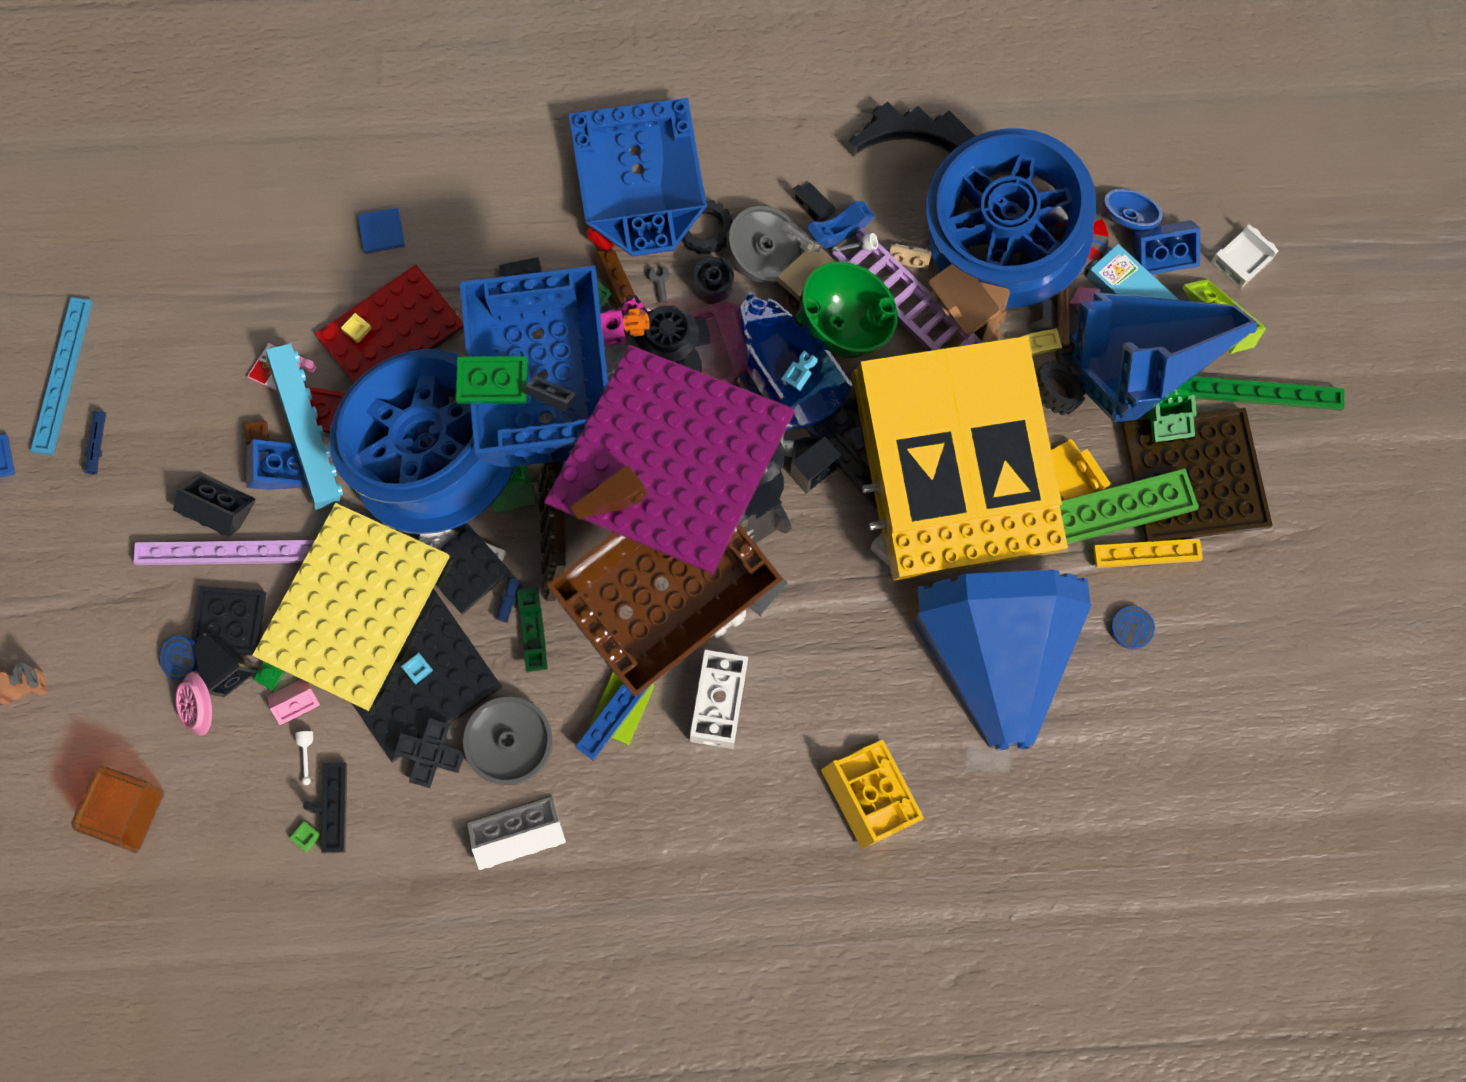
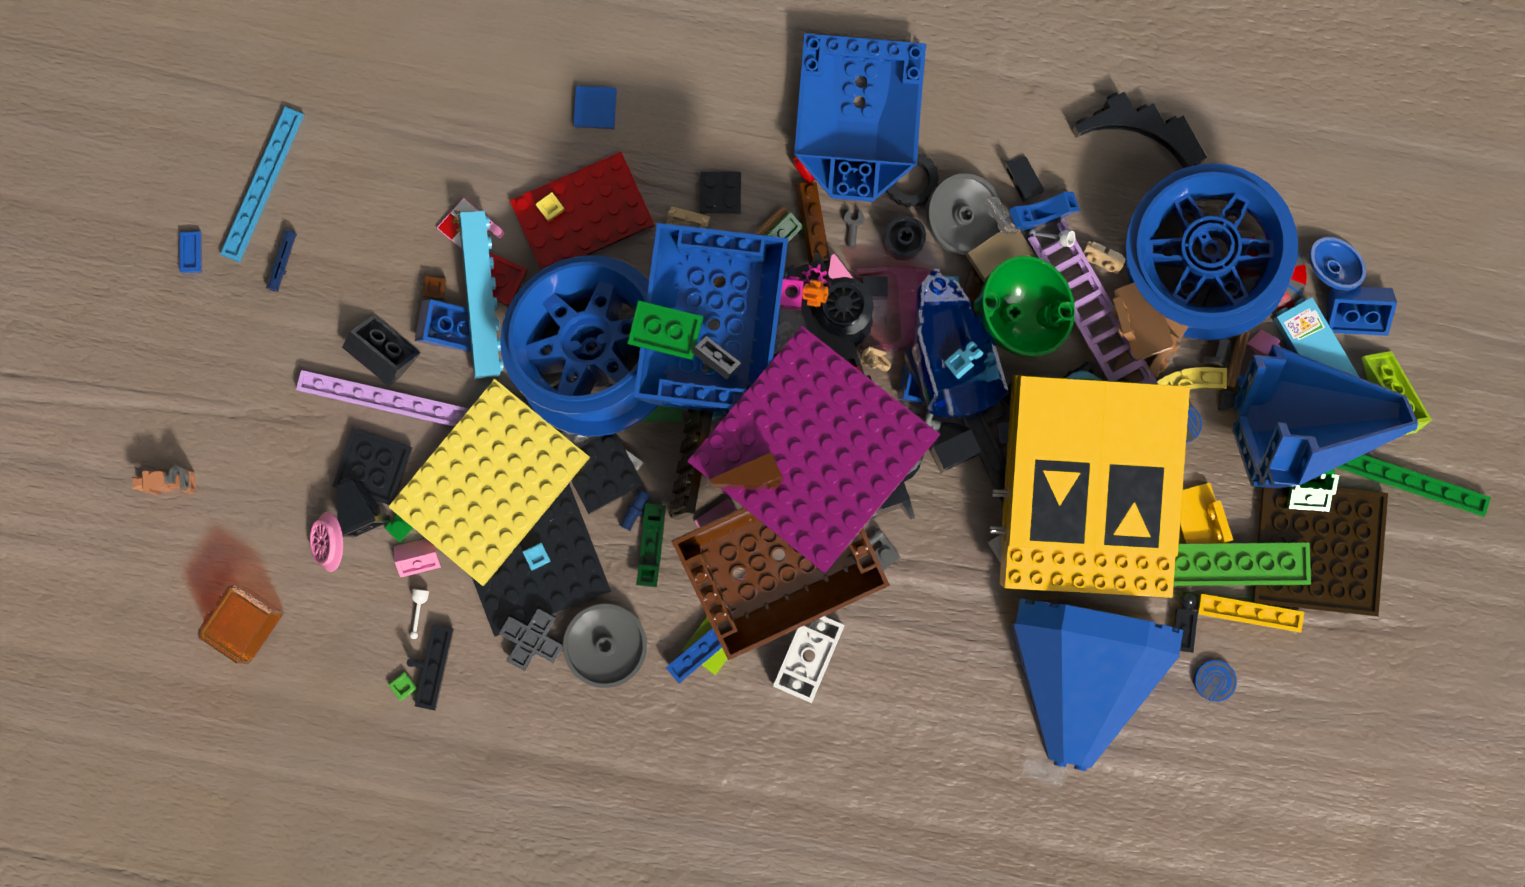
camera: 15 degrees right, 10 degrees up
(178, 657) = (320, 491): tile -> none
(515, 833) = (593, 731): white slope -> none
(872, 794) = (928, 777): yellow piece -> none
(1069, 382) = (1225, 430): black tyre -> none
(1089, 571) = (1187, 621): none -> black plate
(1244, 256) = (1435, 337): white panel -> none

